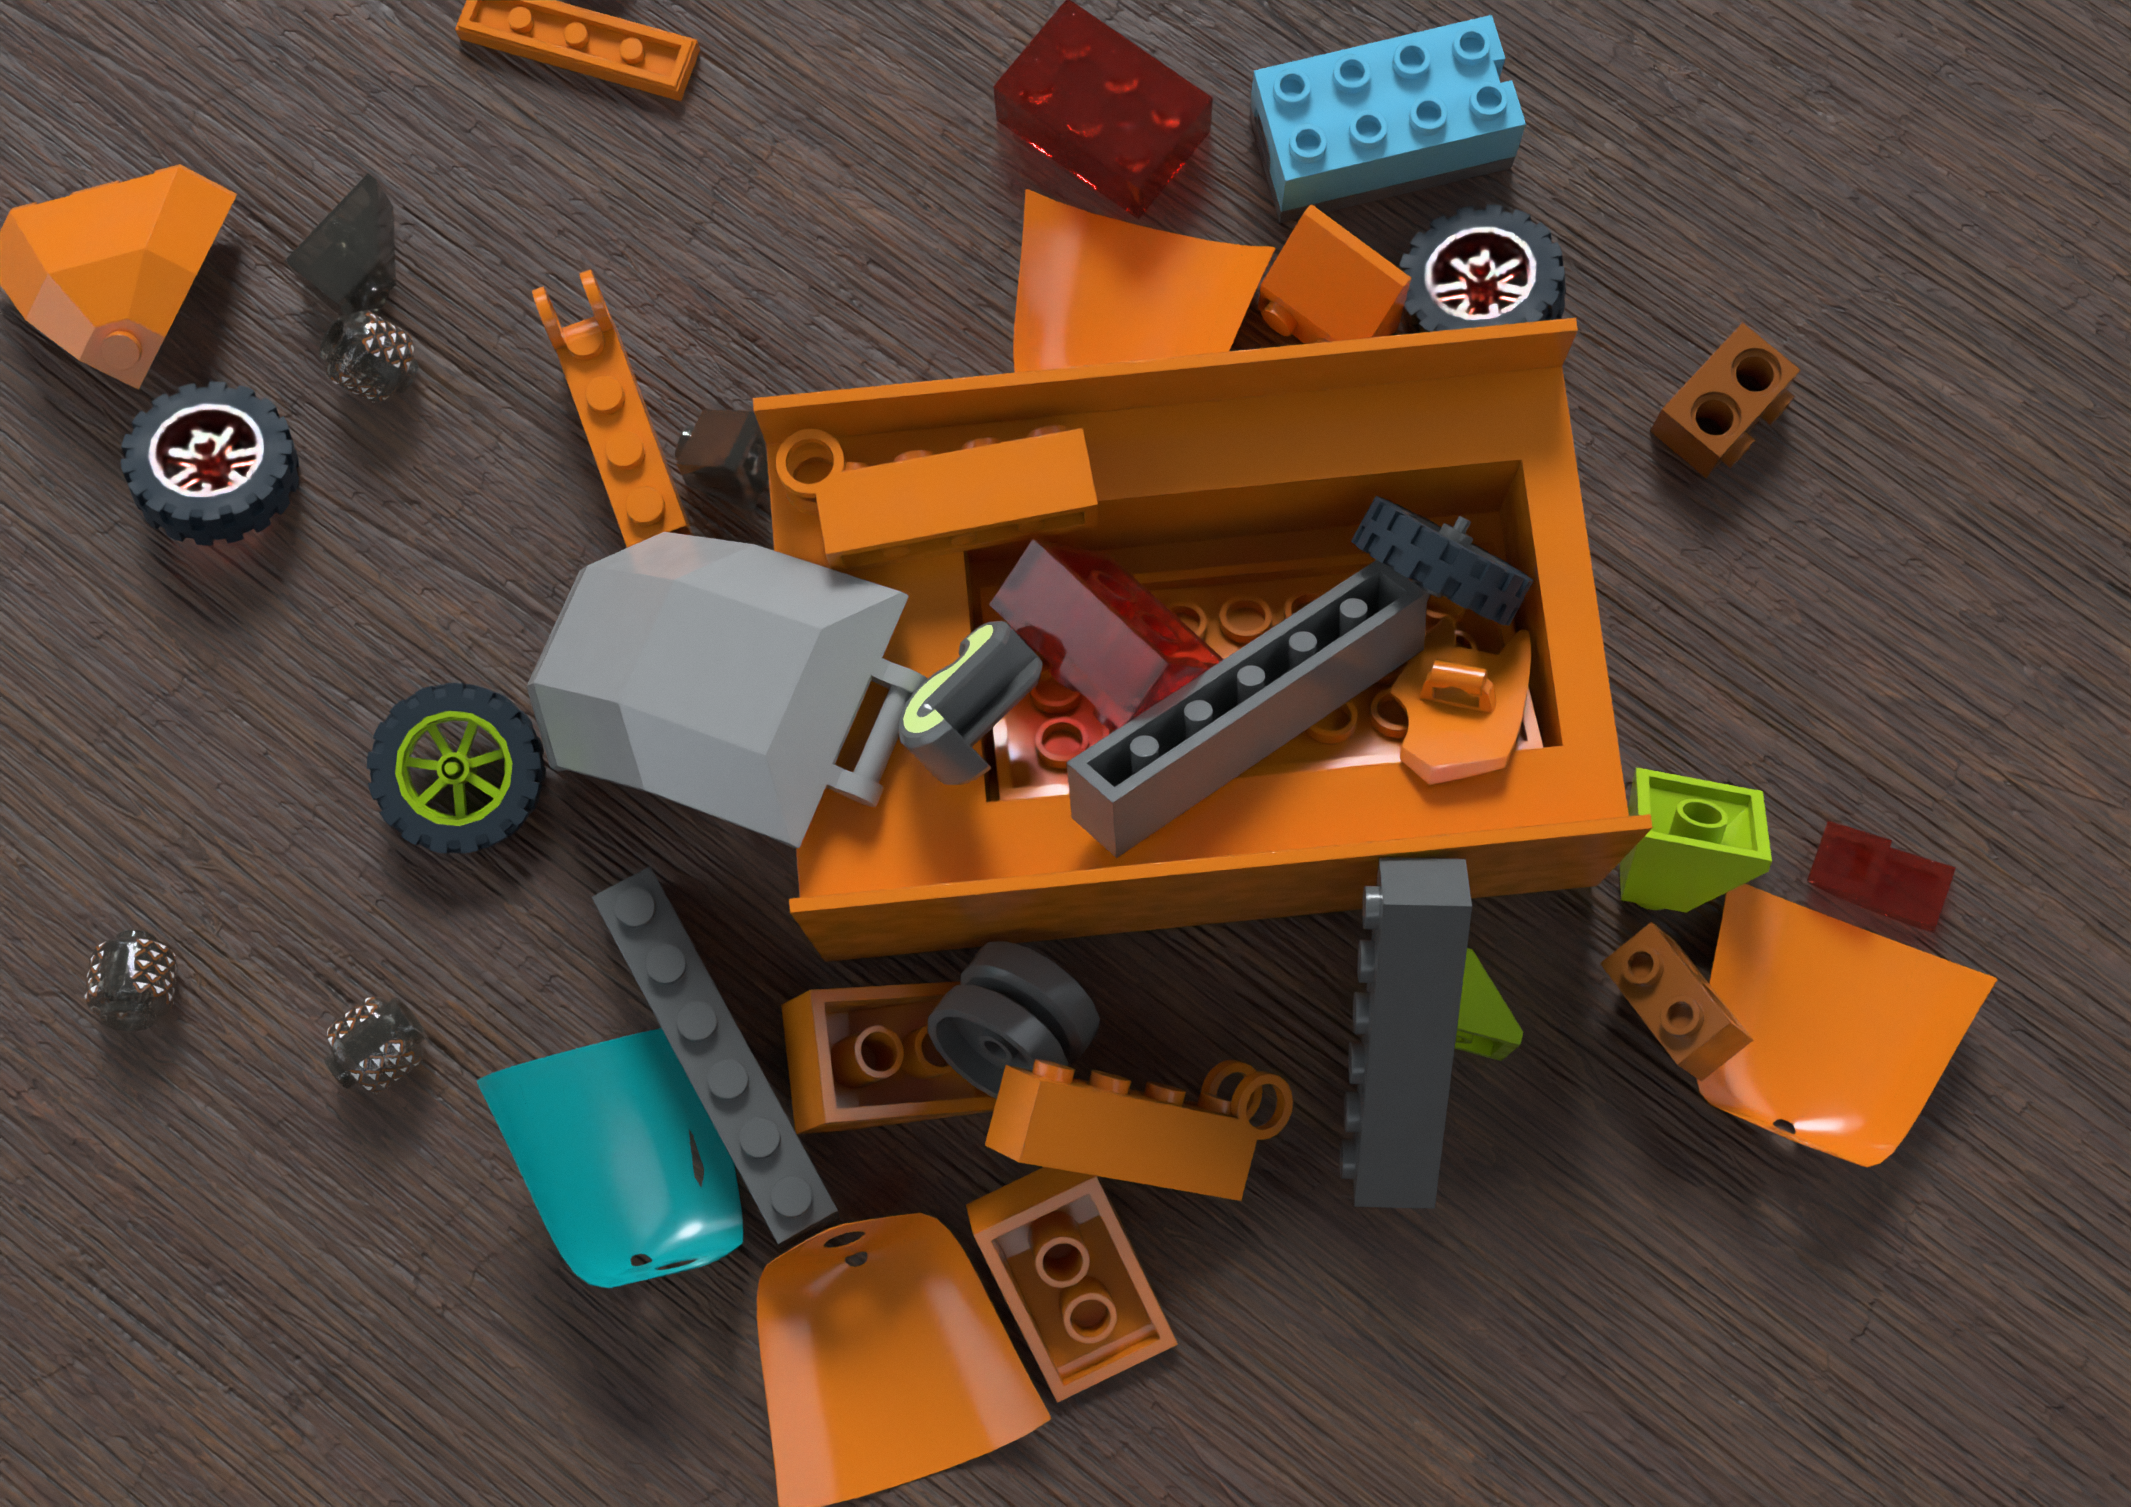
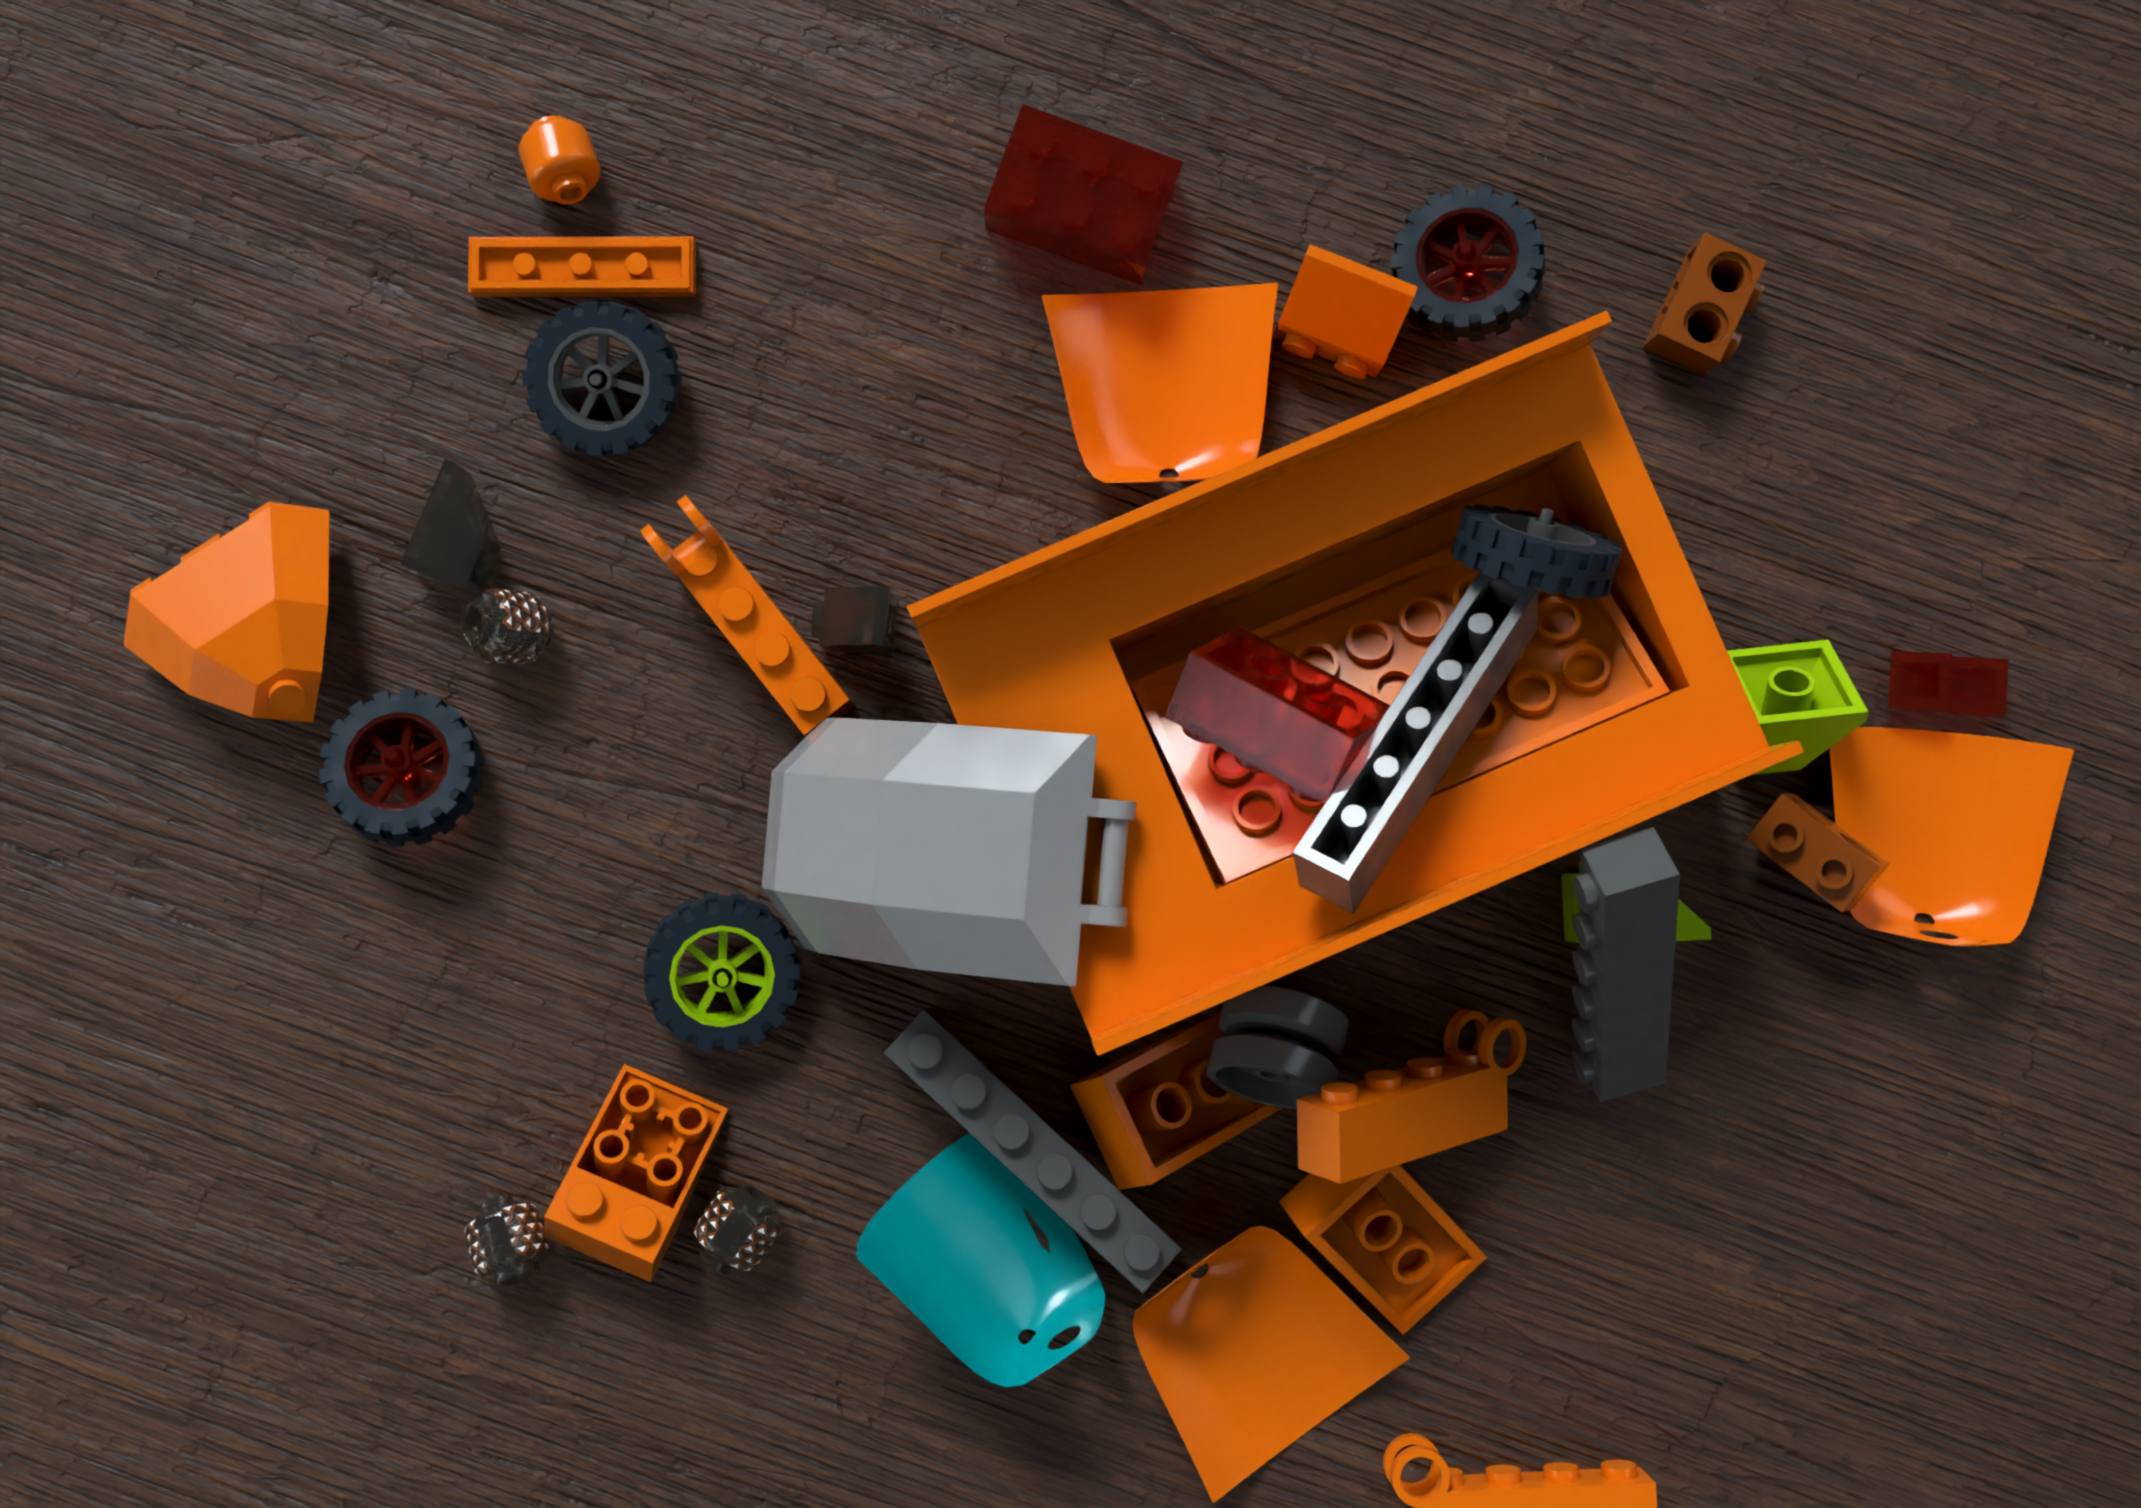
camera: 30 degrees left, 10 degrees up
(289, 955) = (635, 1173): none -> orange slope
(523, 96) = (547, 391): none -> black wheel
(945, 500) = (1099, 637): orange hinge -> none
(967, 701) = (1176, 815): dark grey animal -> none
(1385, 118) = (1338, 132): medium azure piece -> none
(1462, 705) = (1591, 673): orange shield -> none

